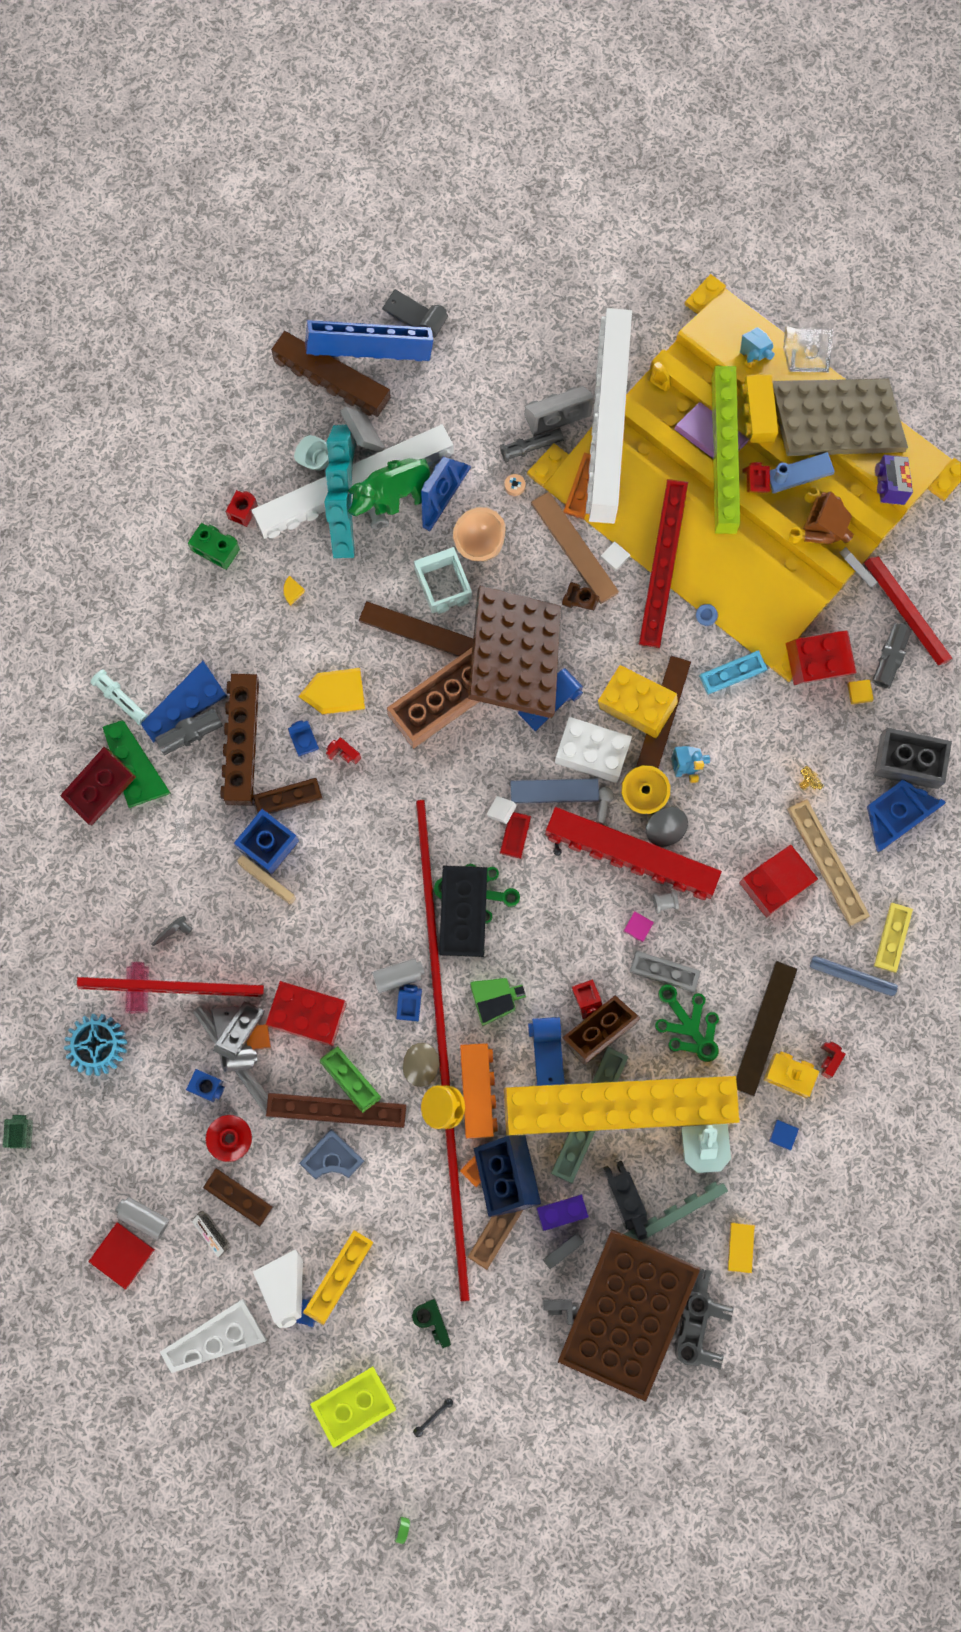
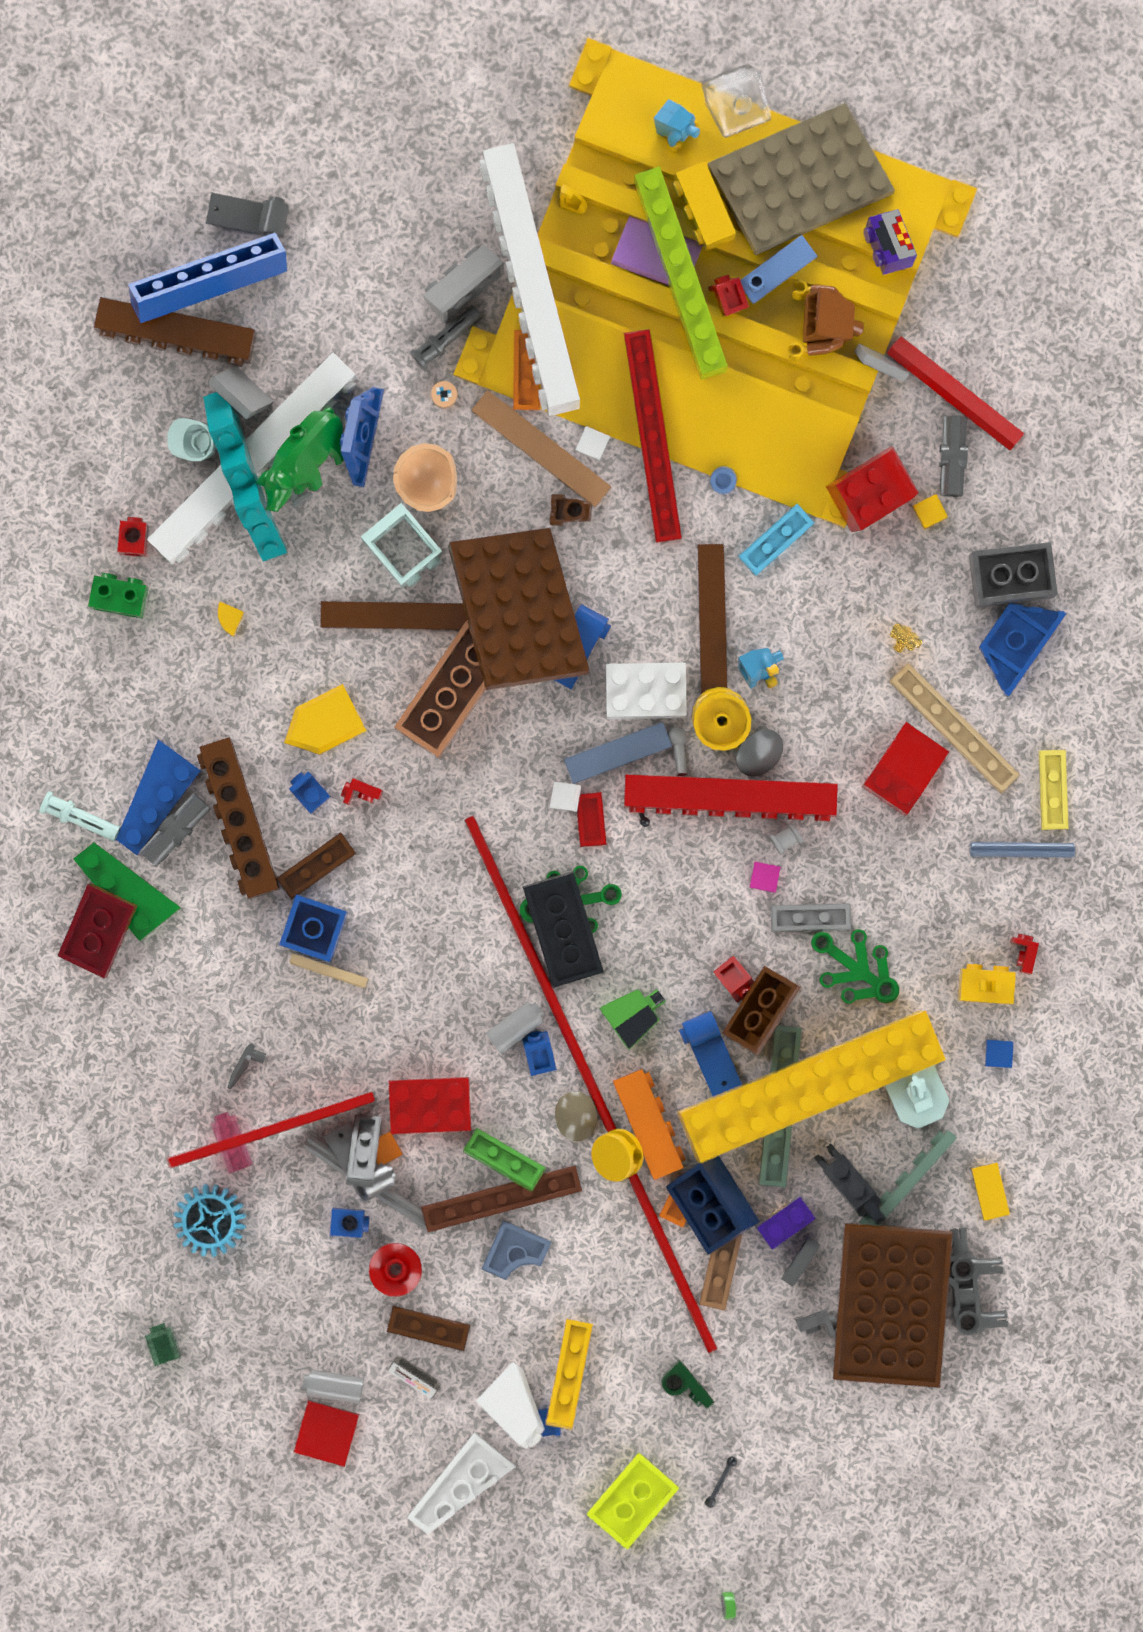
camera: 20 degrees left, 10 degrees up
(638, 701) = (678, 616): yellow brick -> none
(765, 1028) = (942, 942): dark brown tile -> none

